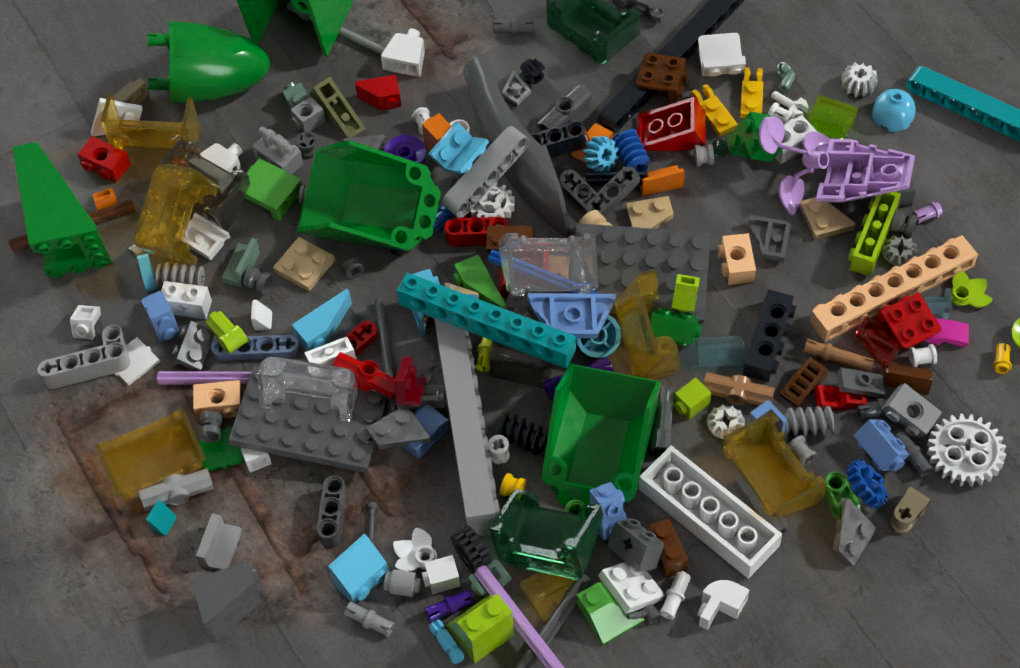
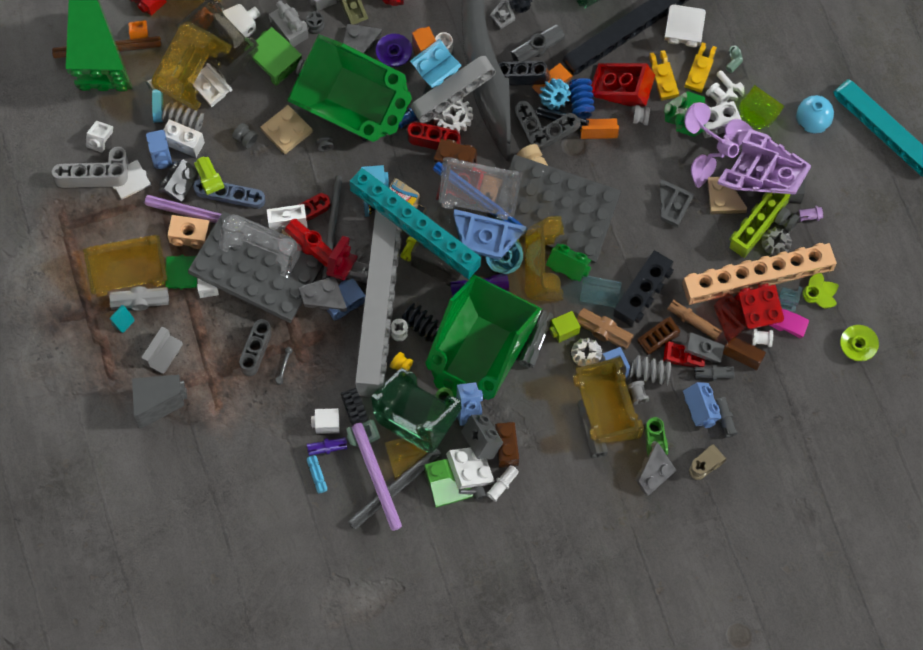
camera: 10 degrees right, 10 degrees up
(210, 426) = (177, 252): dark grey wheel -> none
(240, 262) = (235, 116): sand green panel -> none
(260, 316) = (240, 167): white slope -> none
(320, 324) = (285, 187): medium azure slope -> none
(358, 570) = (263, 401): medium azure slope -> none
(369, 619) = (262, 441): light grey pin -> none
(402, 583) = (294, 419): light grey brick -> none
(413, 550) = (309, 395): white plate -> none
(419, 120) = (416, 24): white bush -> none
(474, 276) = (421, 181): bright green slope -> none
(483, 627) = (346, 470): lime slope -> none
(650, 212) = (580, 156): tan wing -> none
(663, 74) = (630, 34): reddish brown bracket -> none
(685, 293) = (584, 237): lime brick -> none
(710, 511) = (548, 424): white brick -> none
(723, 148) = (657, 111): clear green hinge -> none
(723, 597) = (536, 493): white brick -> none
(740, 248) = (639, 205): light nougat brick -> none
(859, 79) = (800, 83): white gear -> none
(867, 484) = (679, 434): blue gear -> none
(924, 412) = (745, 387): light grey brick -> none
(964, 468) = (776, 411): white gear -> none
(1002, 359) = (824, 360): yellow pin -> none

